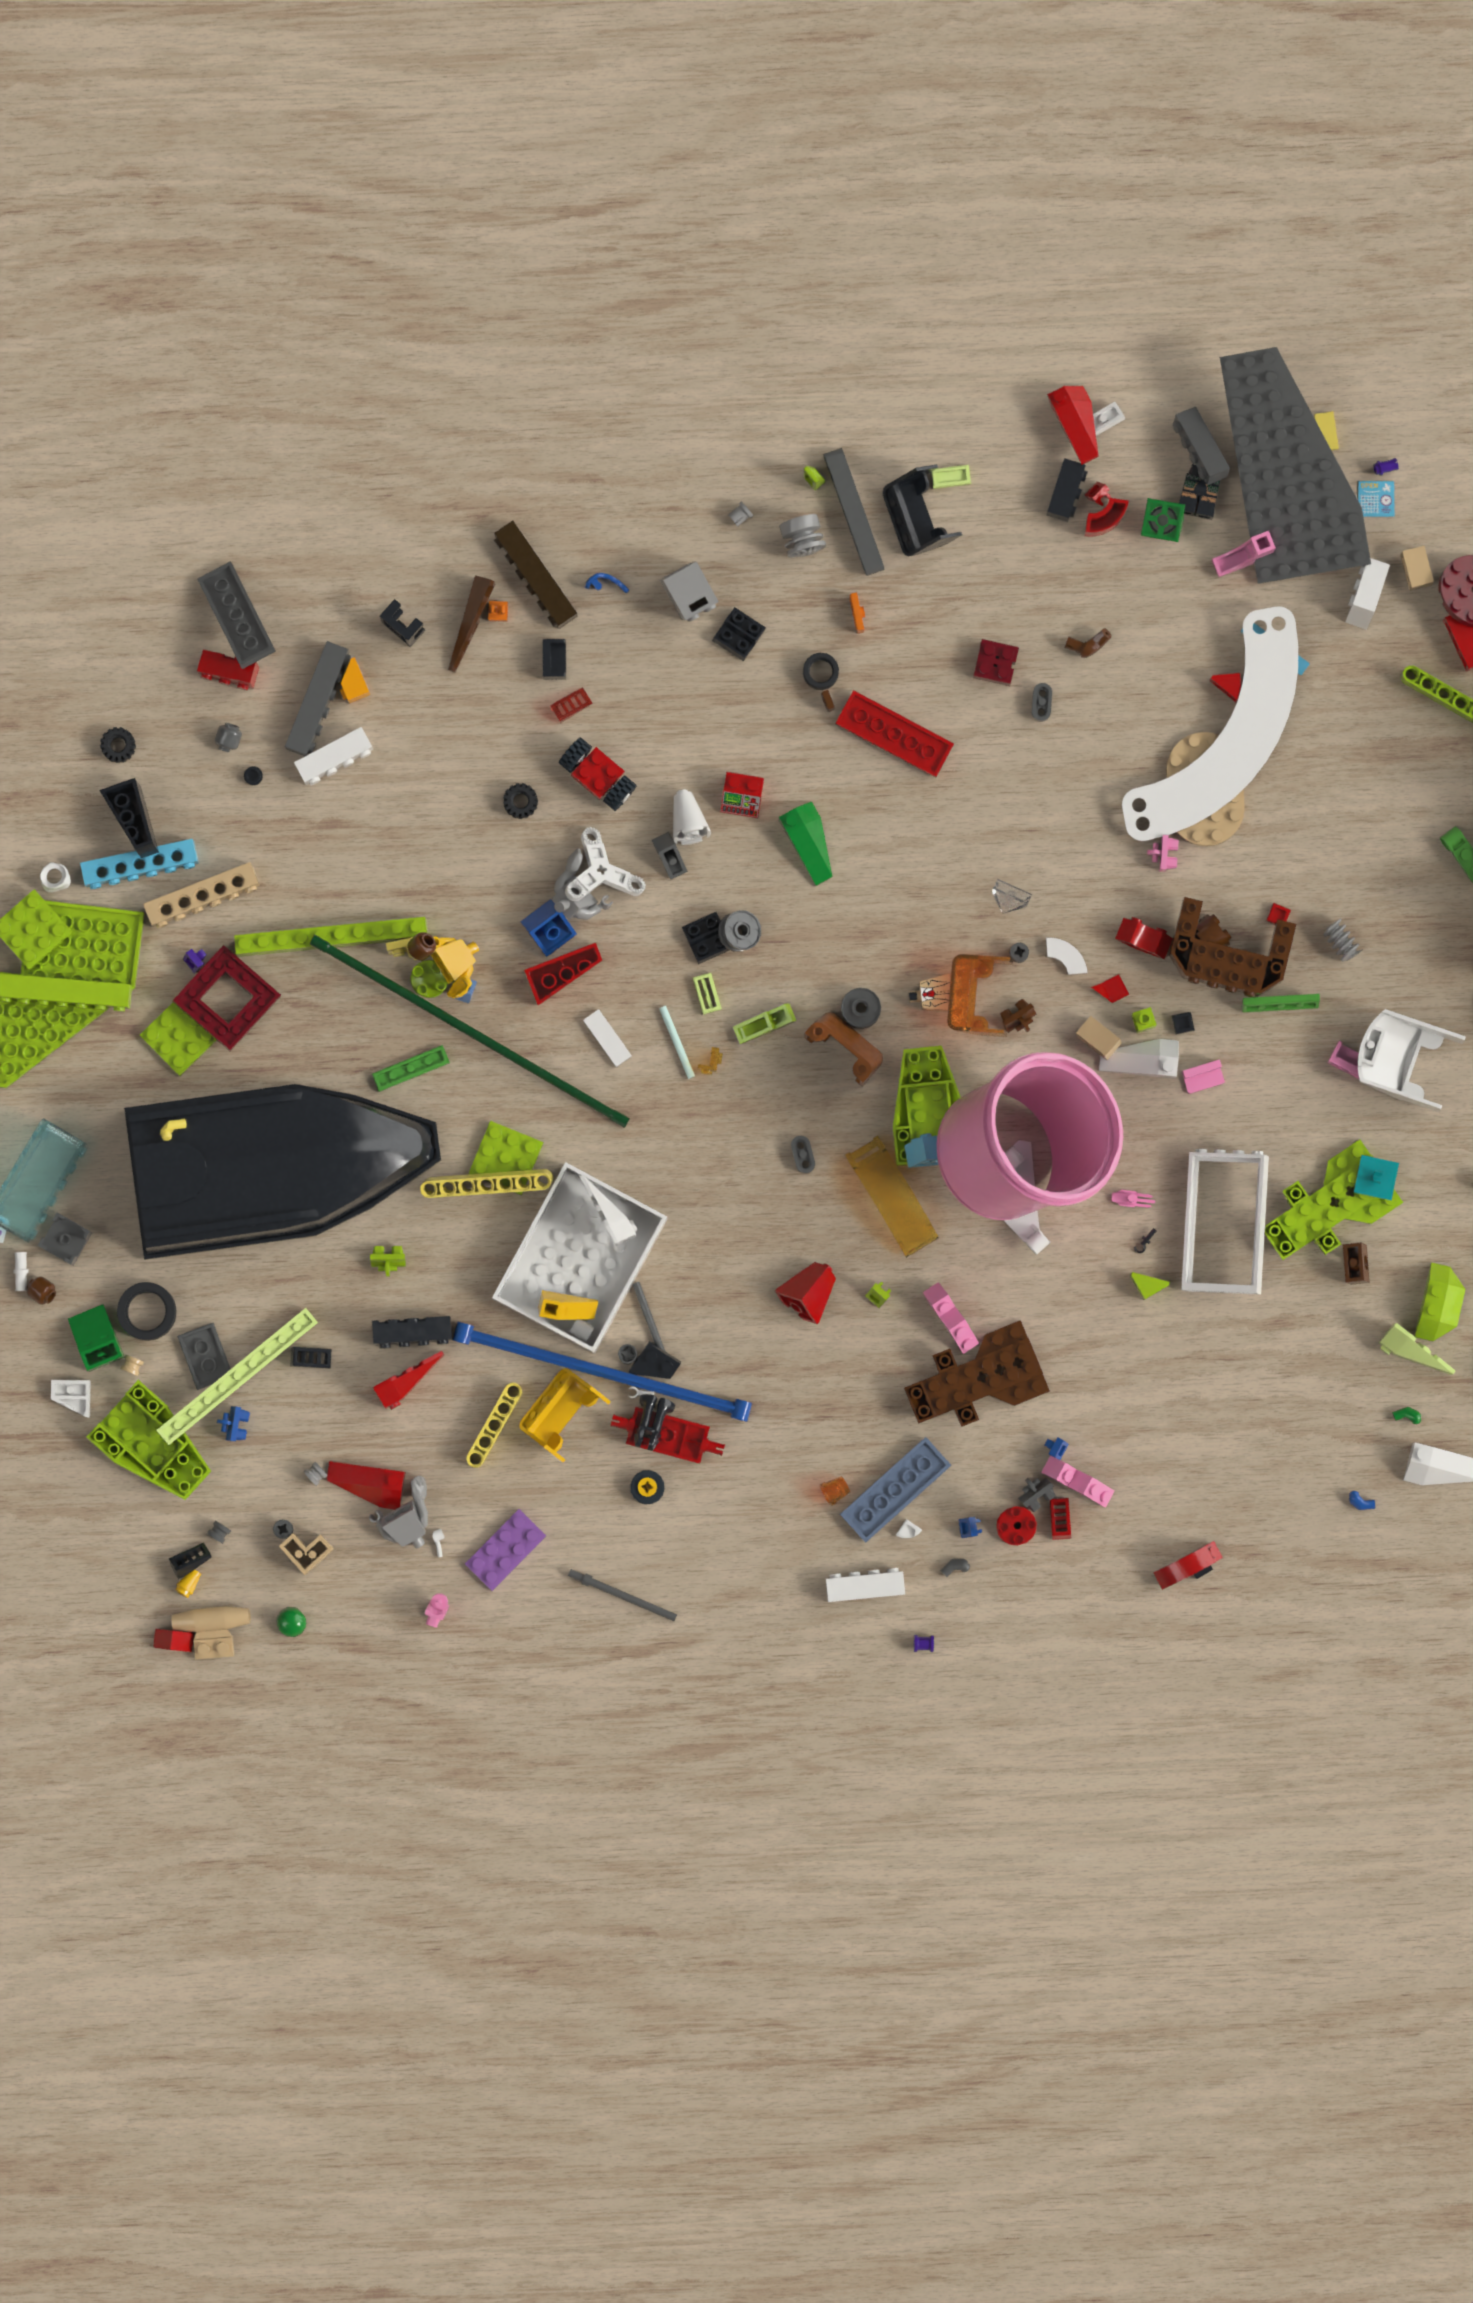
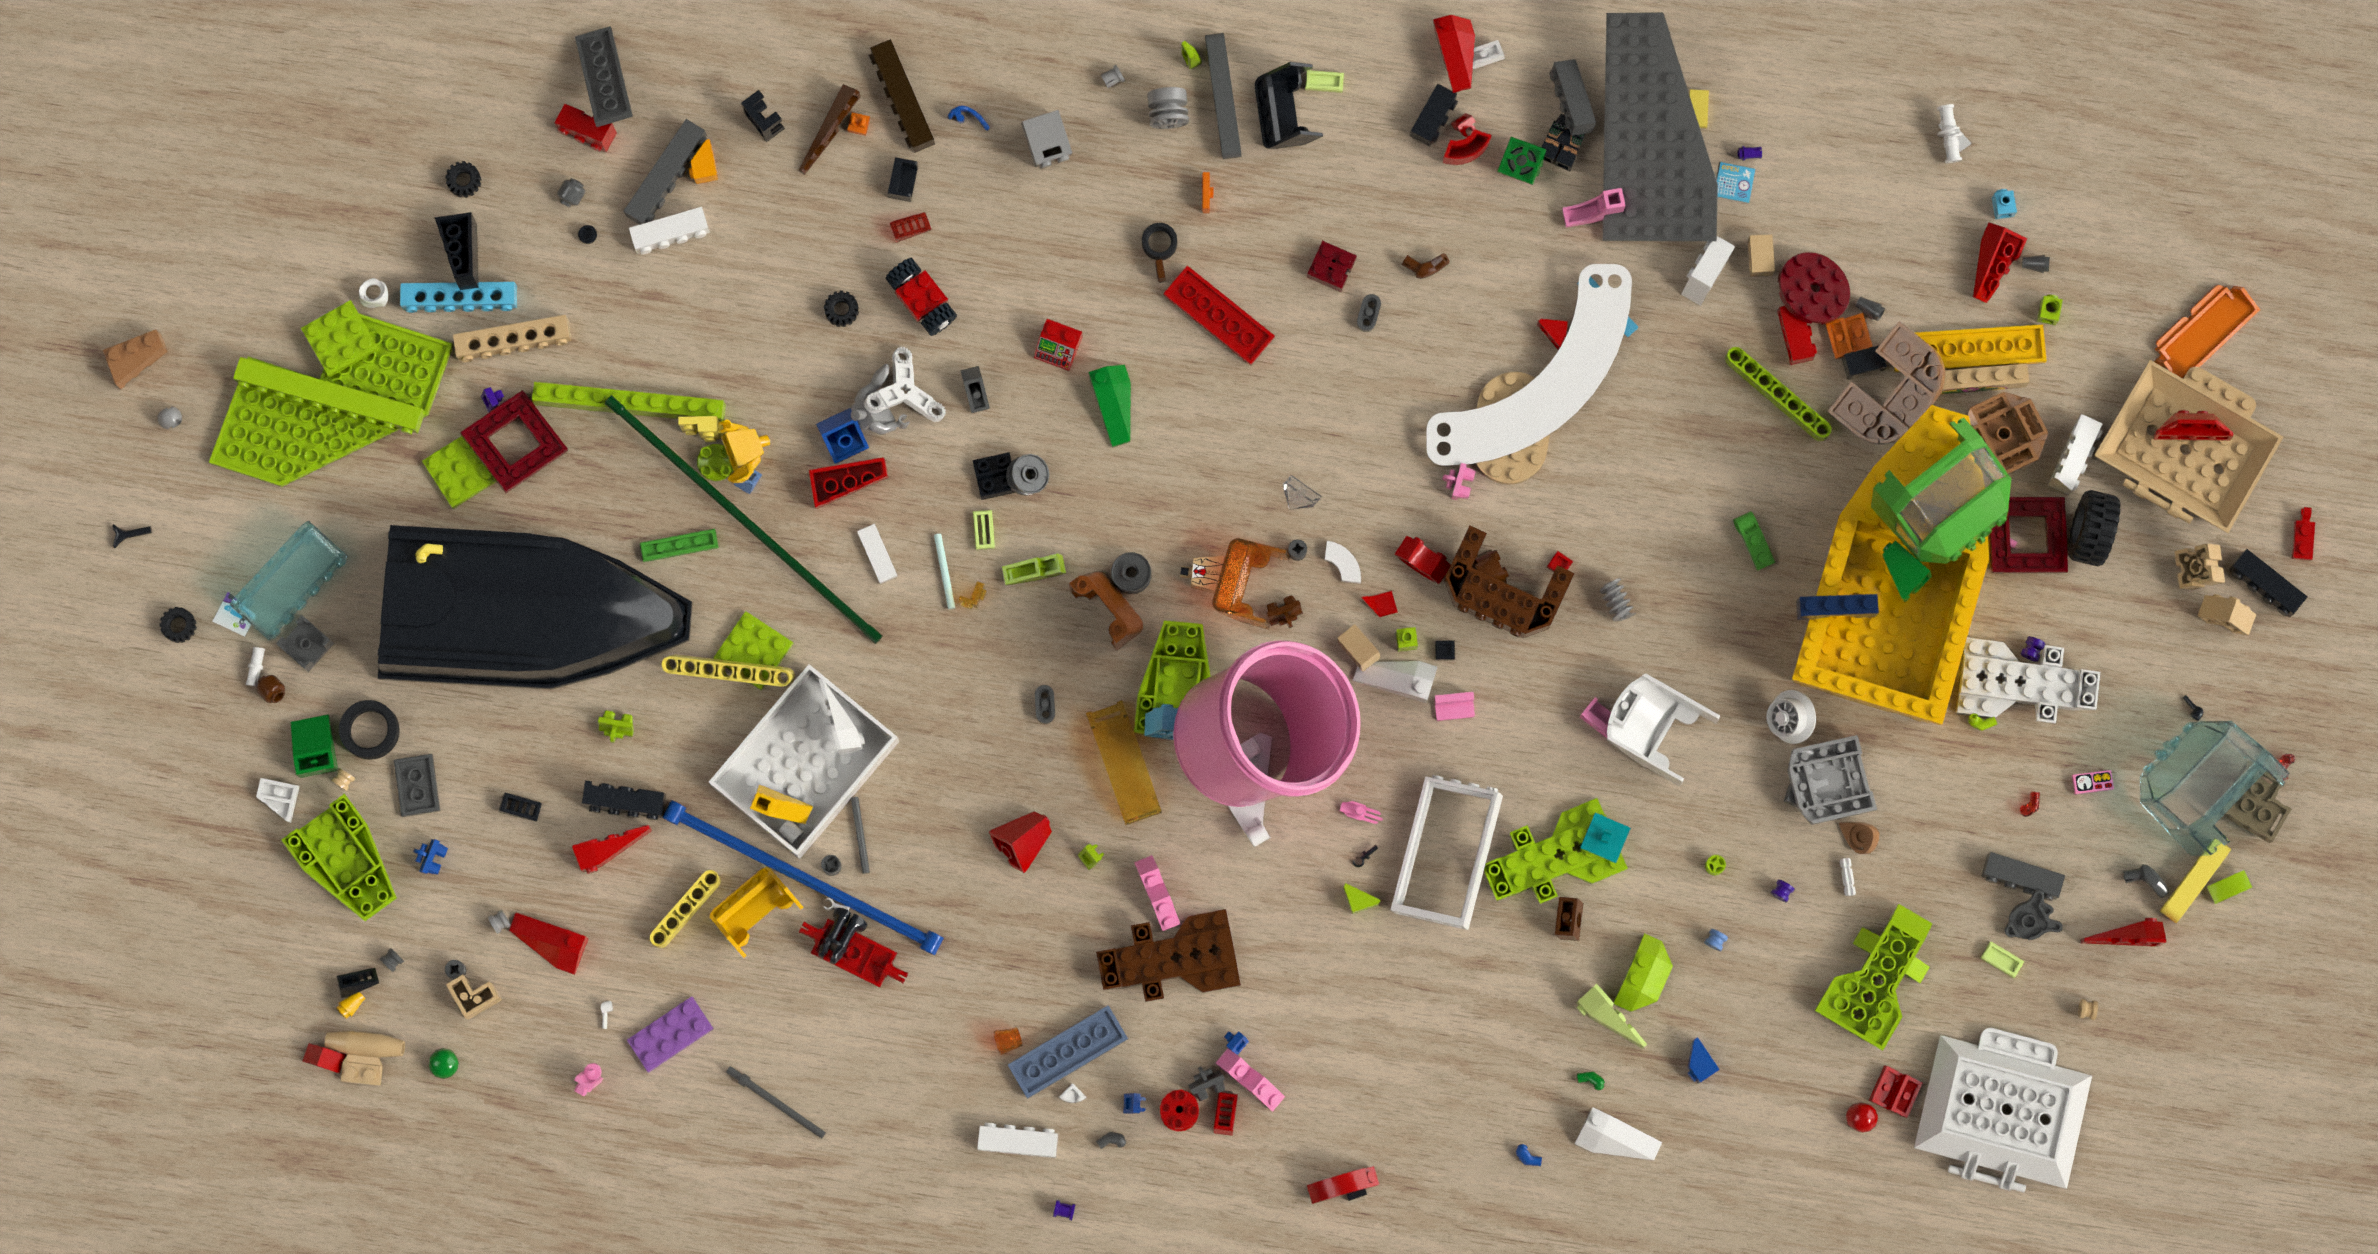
camera: 10 degrees right, 5 degrees down
(237, 1376) = (442, 810): yellowish green plate -> none
(408, 1521) = (578, 986): light grey torso -> none
(421, 946) = (712, 425): reddish brown head -> none
(644, 1492) = (829, 1002): black wheel -> none
(655, 1363) = (856, 879): black wing -> none
(688, 820) = (1000, 359): white cone -> none
(739, 634) = (1087, 191): black slope -> none
(1278, 1003) = (1544, 649): bright green tile -> none

